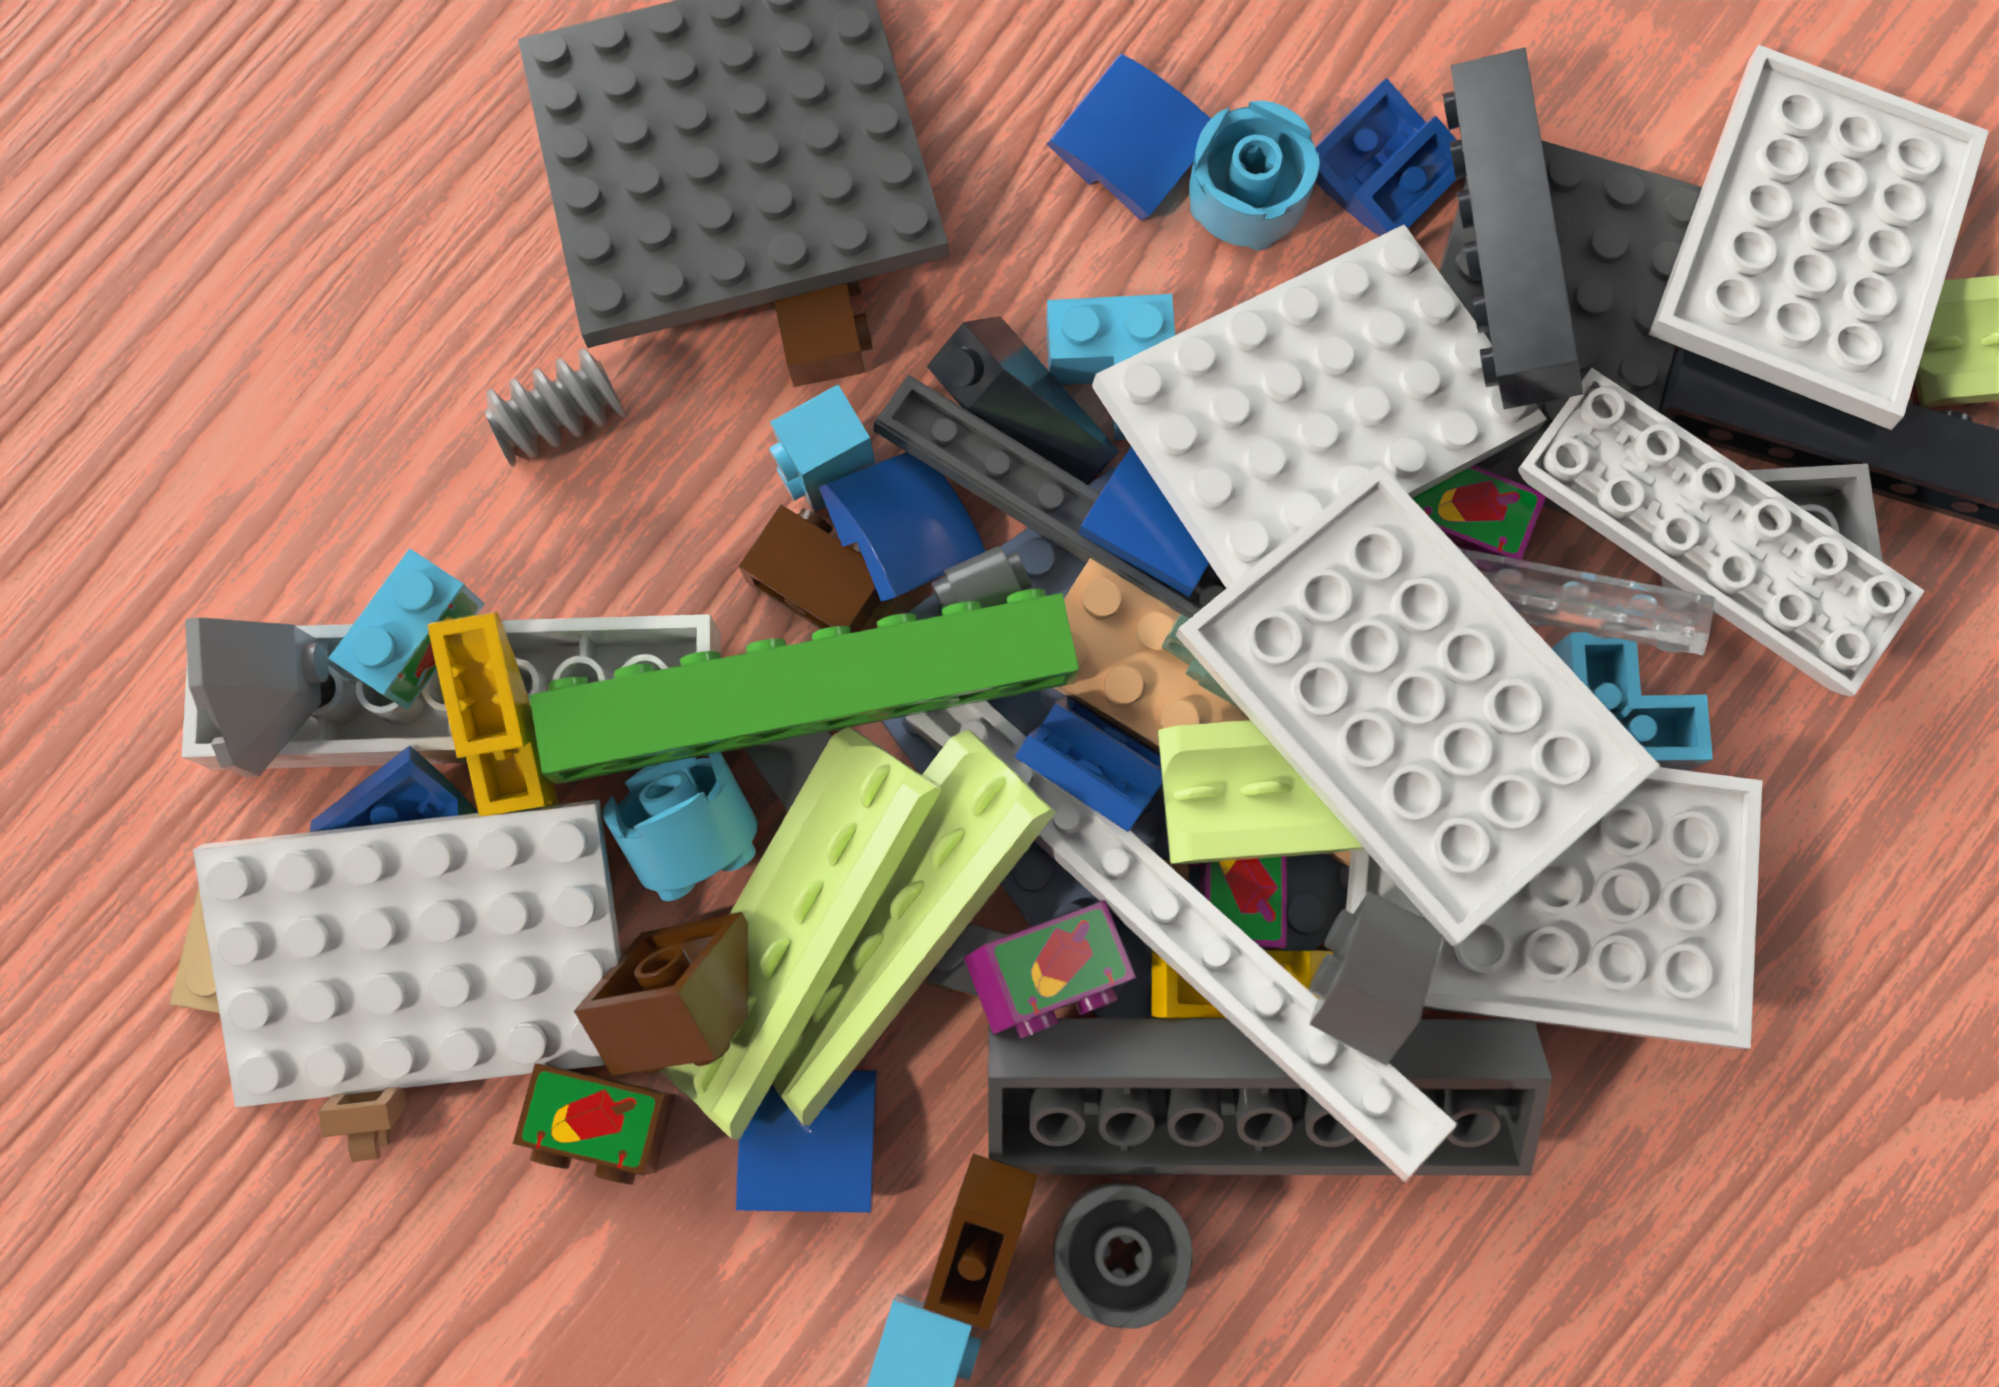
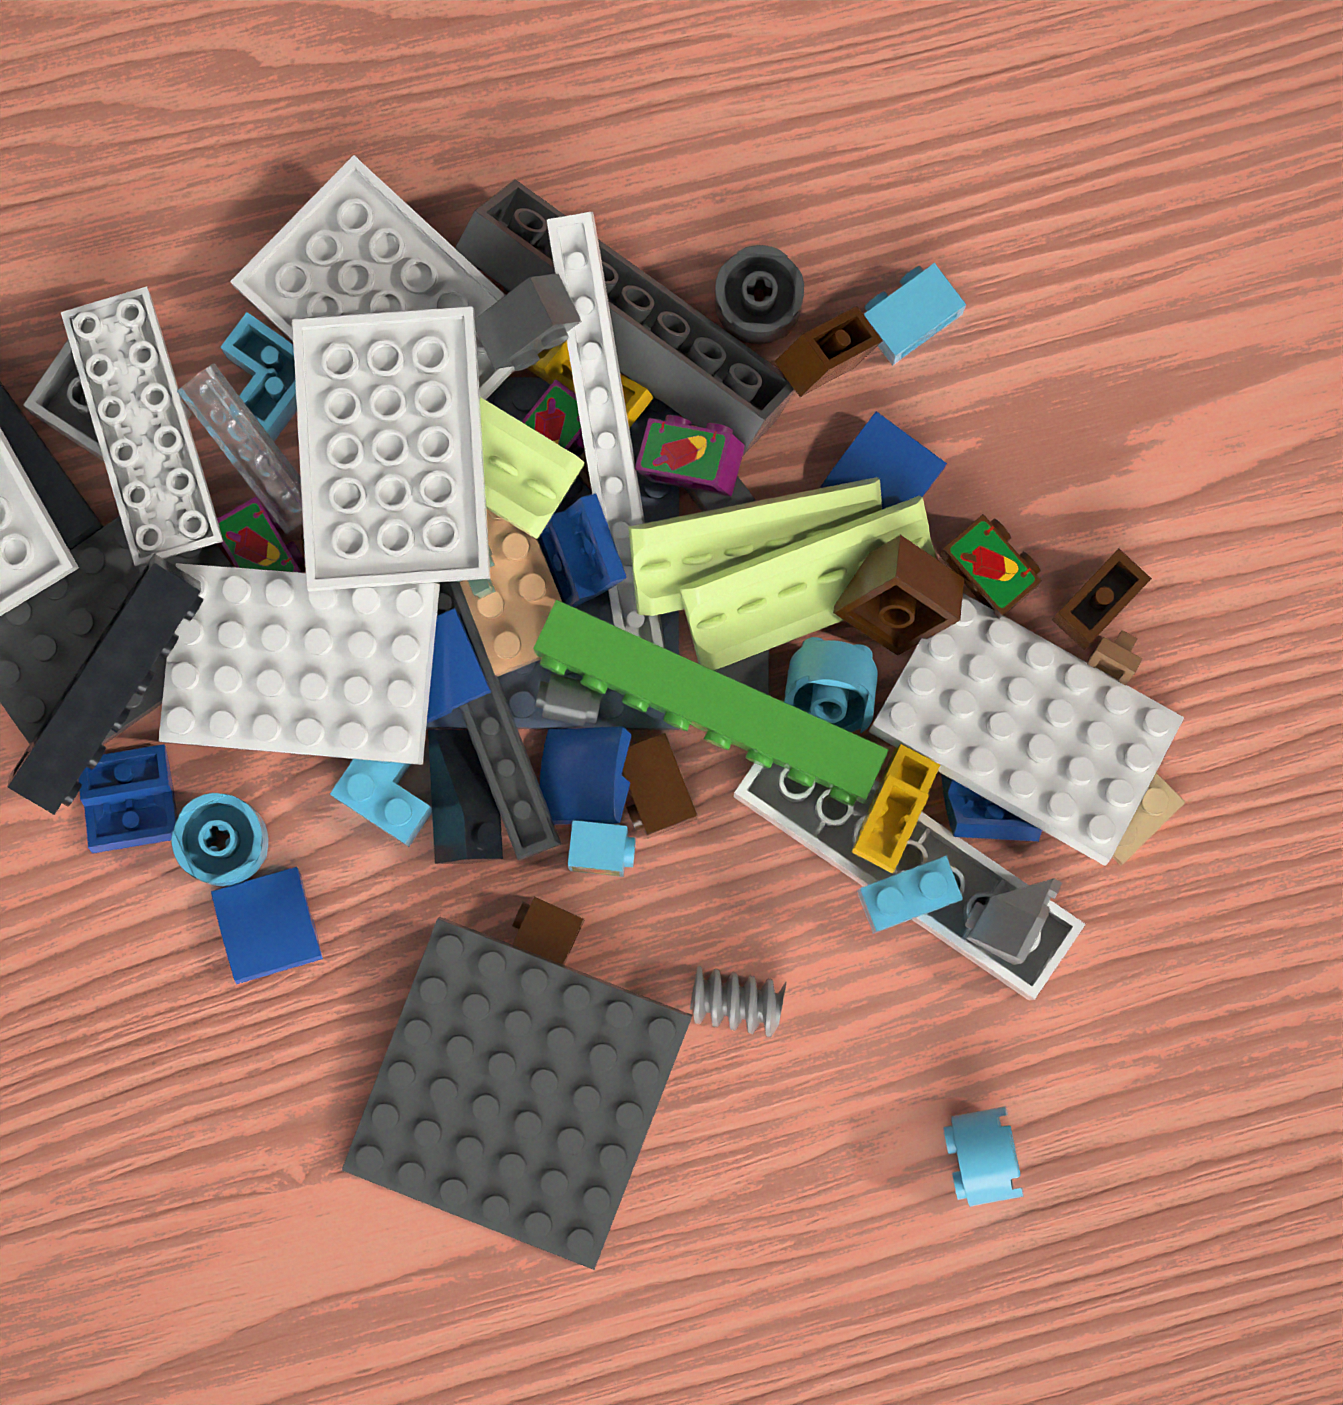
camera: 145 degrees left, 5 degrees up
(147, 425) = (984, 1156): none -> medium azure brick
(424, 1178) = (1101, 599): none -> reddish brown brick

